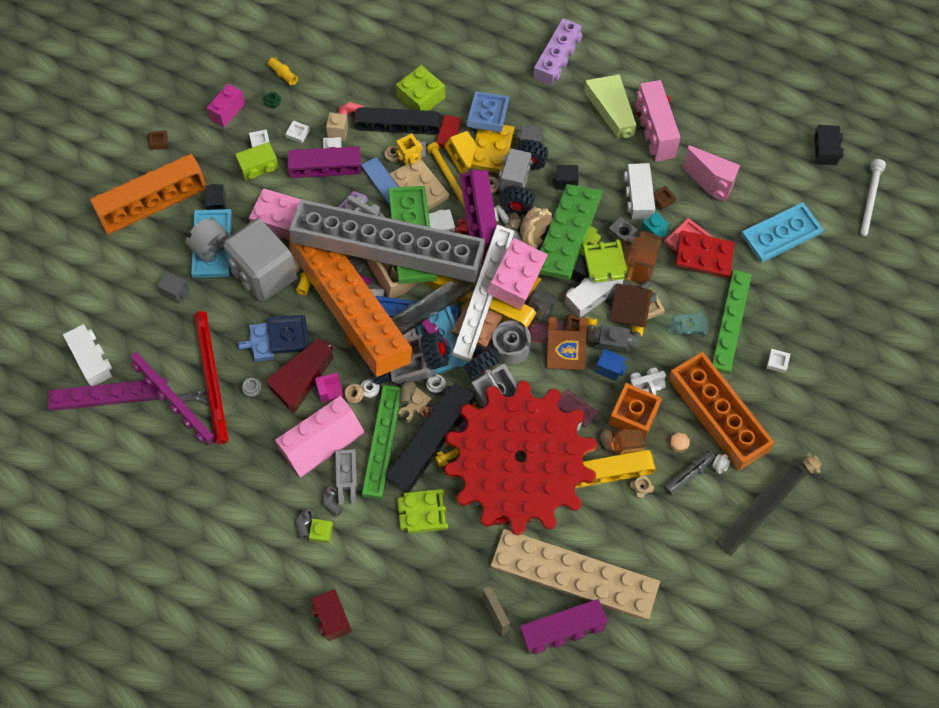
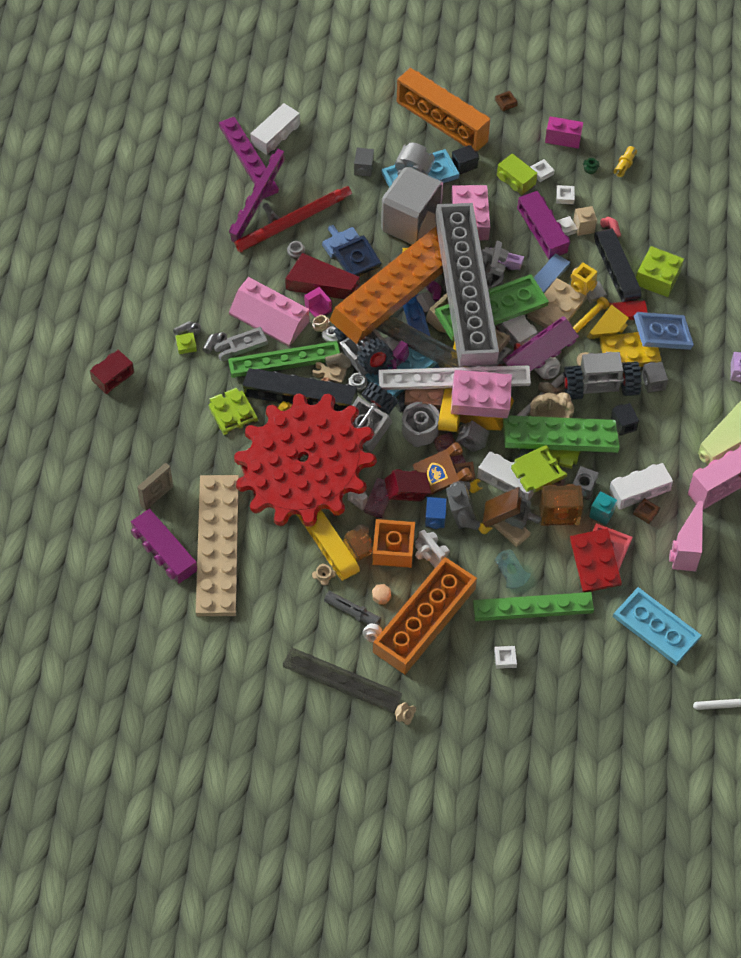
camera: 70 degrees right, 5 degrees down
(578, 377) = (407, 485): none -> dark red brick

